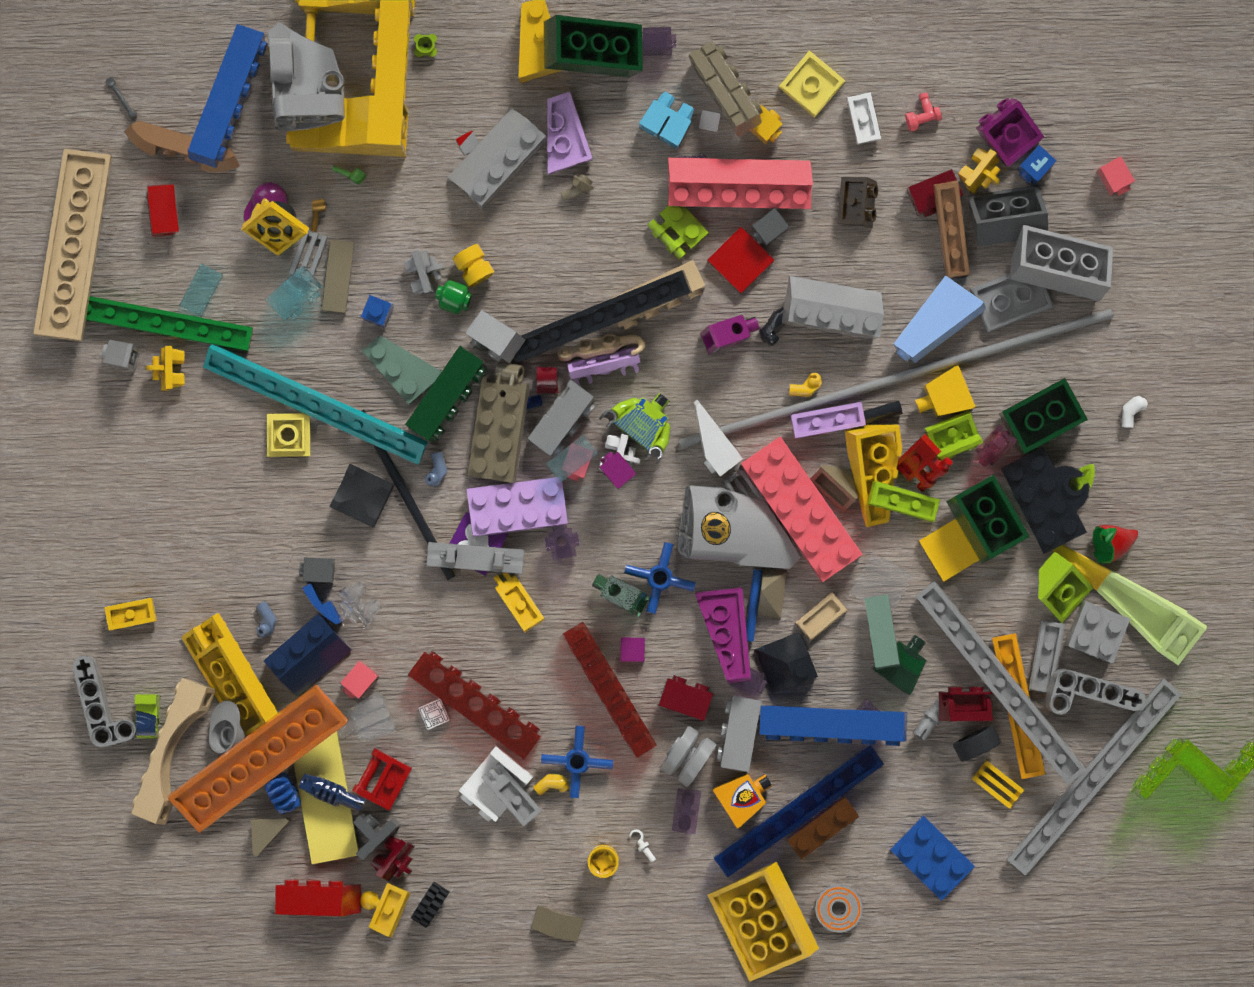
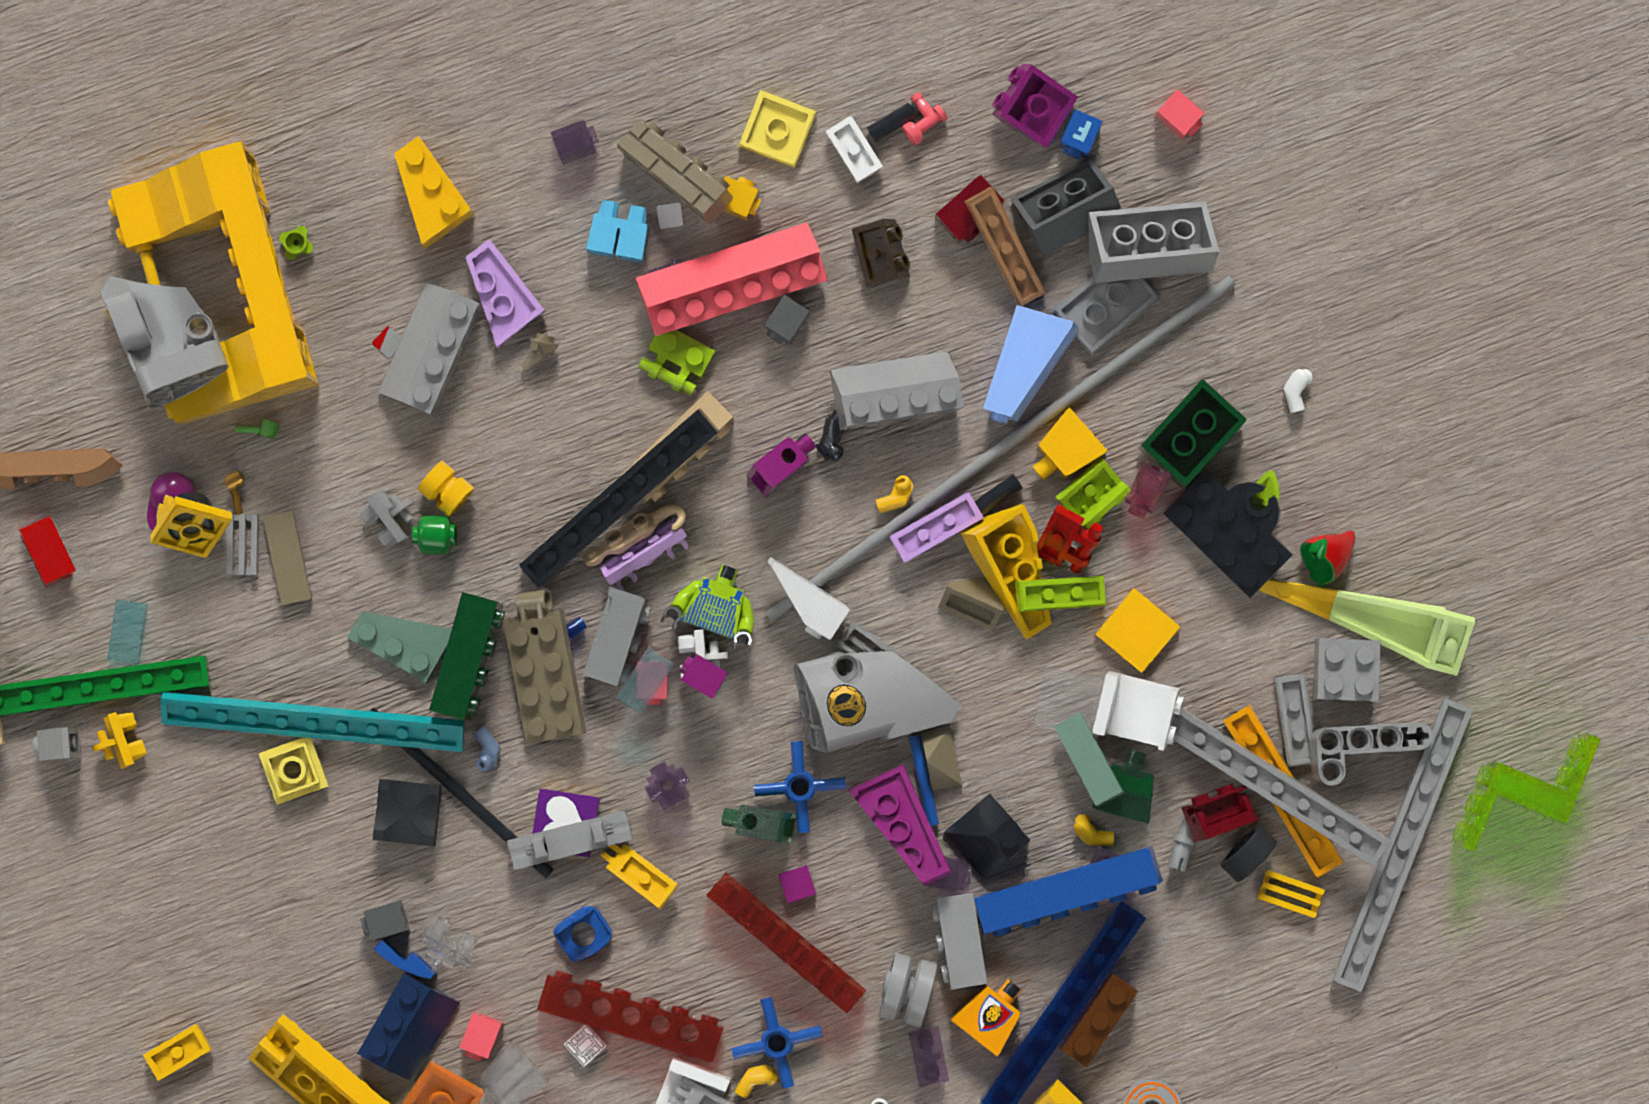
camera: 20 degrees left, 0 degrees up
(227, 96) = (77, 387): blue brick -> none
(268, 620) = (346, 1002): sand blue arm -> none
(294, 293) = (241, 597): clear light blue brick -> none
(377, 311) = (349, 584): blue brick -> none
(447, 623) = (564, 929): none -> blue piece
(495, 337) = (502, 566): light grey brick -> none
(516, 506) = (598, 761): lavender plate -> none
(547, 380) = (582, 596): dark red leg -> none
(593, 46) = (498, 175): dark green brick -> none
(686, 698) = (881, 920): dark red brick -> none
(740, 260) = (765, 370): red tile -> none
(801, 509) = (941, 646): coral brick -> none
(821, 616) = (1009, 765): tan tile -> none
(863, 689) = (1089, 834): none -> yellow arm
(898, 108) = (891, 122): none -> black axle
(931, 608) = (1138, 710): none -> white panel
(932, 857) = (1242, 1009): blue plate -> none
(984, 173) = (1020, 166): yellow hips -> none
(987, 519) = (1168, 580): dark green brick -> none
(1061, 586) = (1284, 630): lime slope -> none

